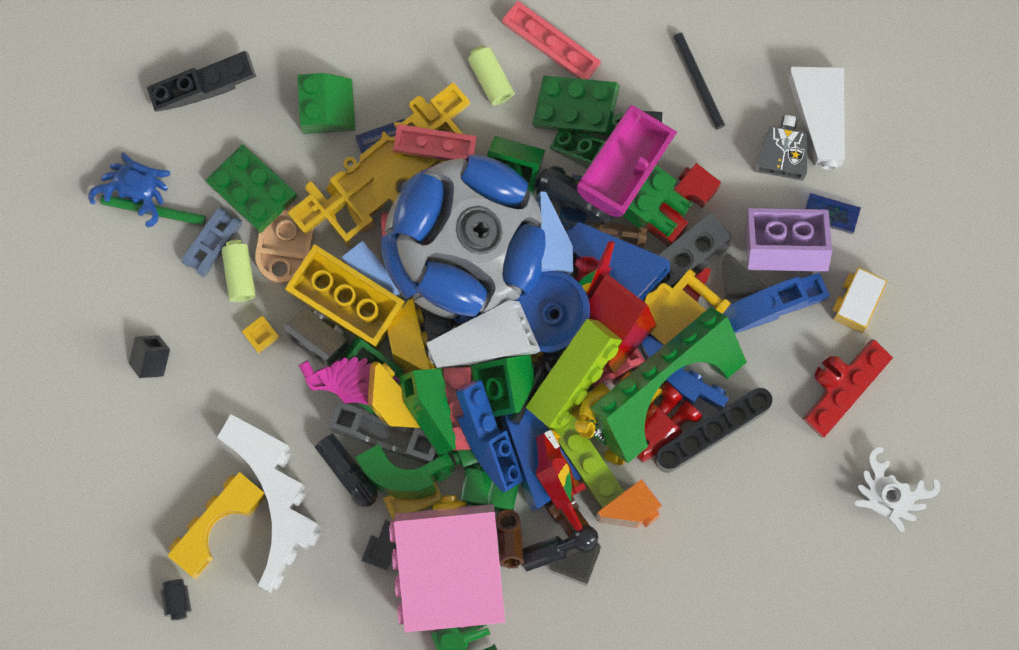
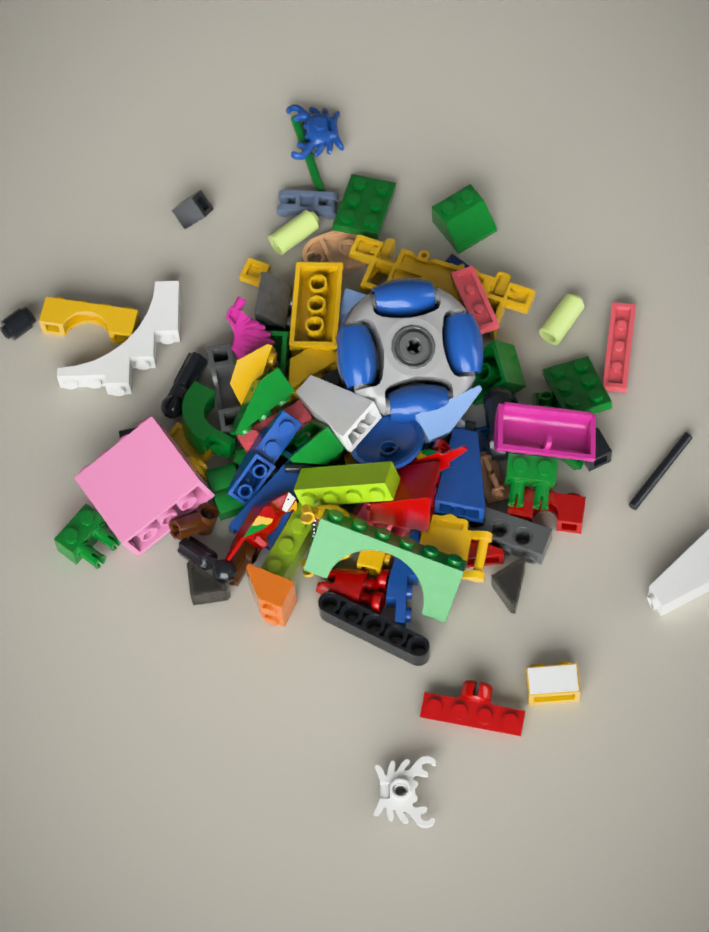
camera: 65 degrees right, 15 degrees down
(201, 84) = (423, 131): black slope -> none
(776, 301) = (508, 616): blue slope -> none
(784, 151) = (641, 560): dark grey torso -> none
(788, 239) = (565, 597): lavender brick -> none
(841, 215) = (614, 627): clear blue tile -> none

